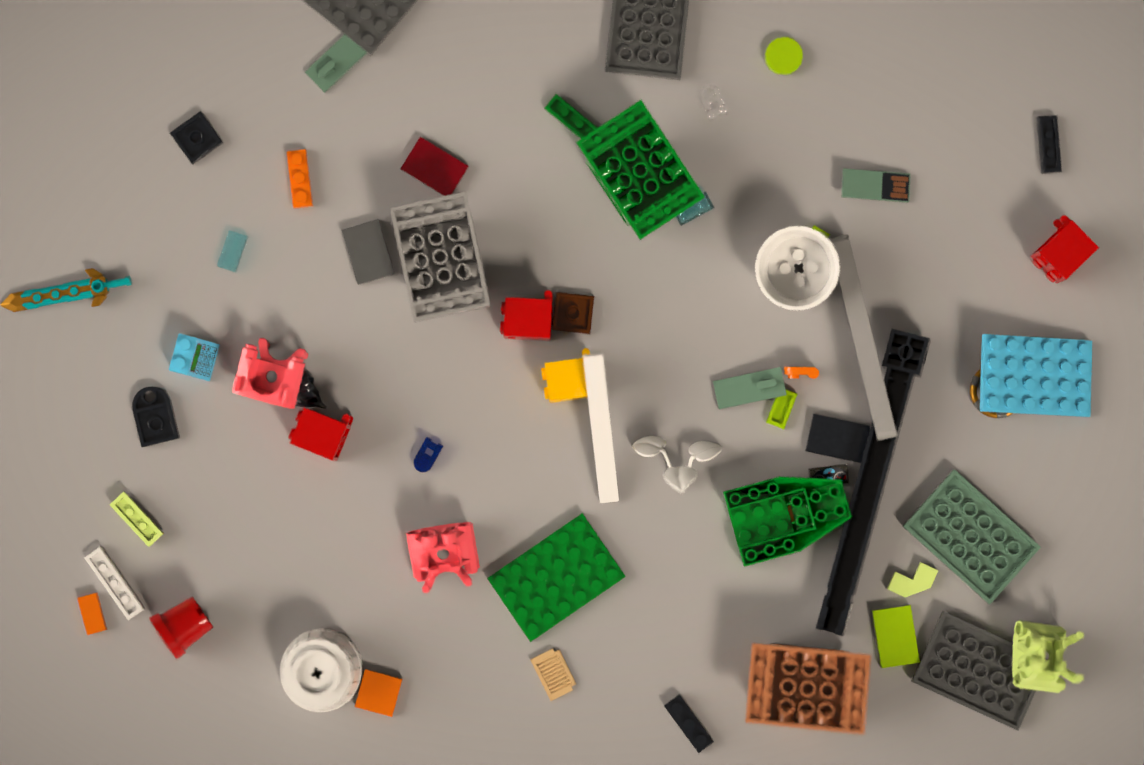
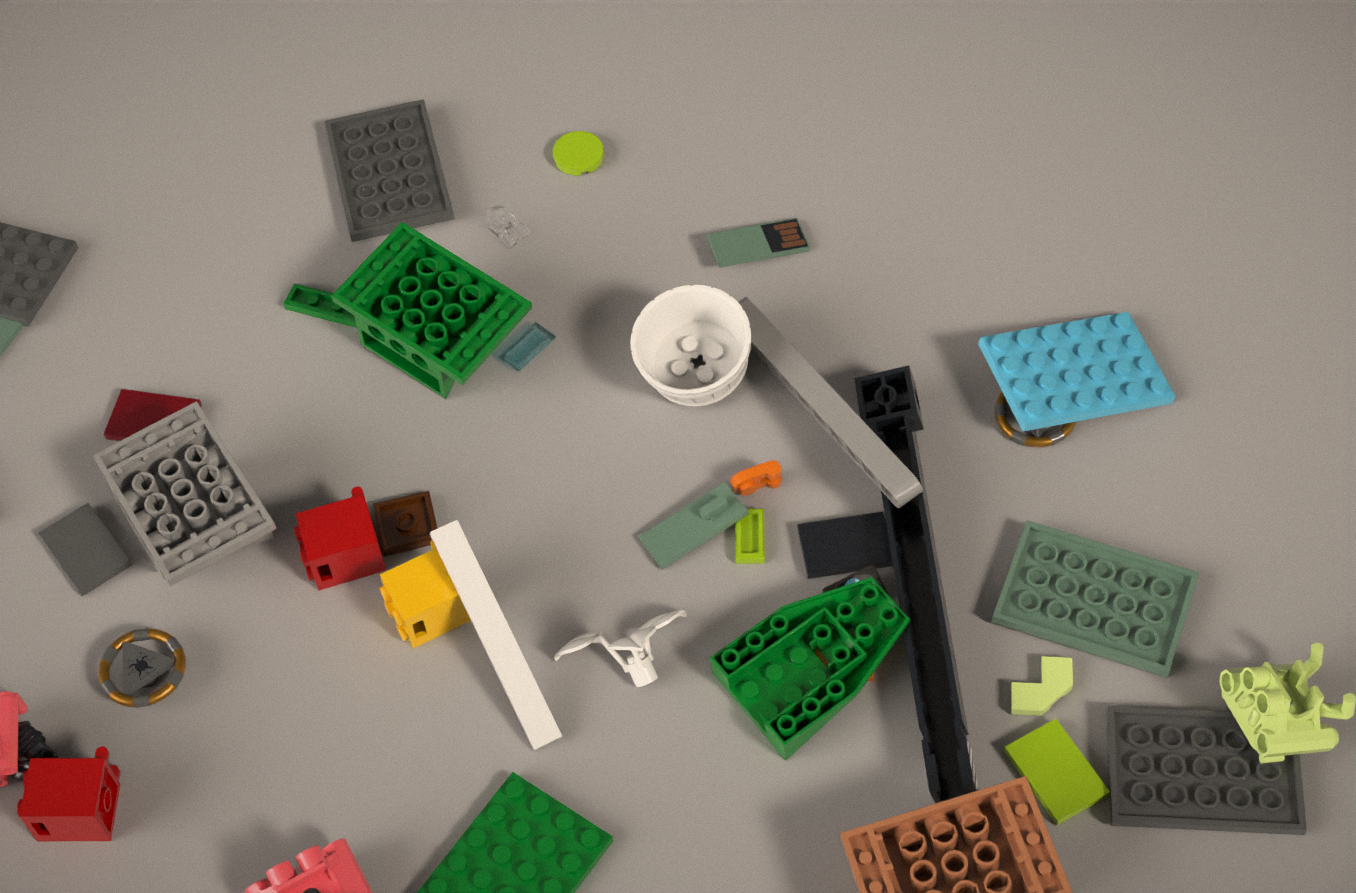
camera: 15 degrees left, 30 degrees down
(383, 357) = (142, 667): none -> dark grey piece
(423, 461) = (248, 790): clear blue plate -> none
(1049, 144) = (956, 133): black tile -> none
(1063, 250) = (1035, 222): red container -> none

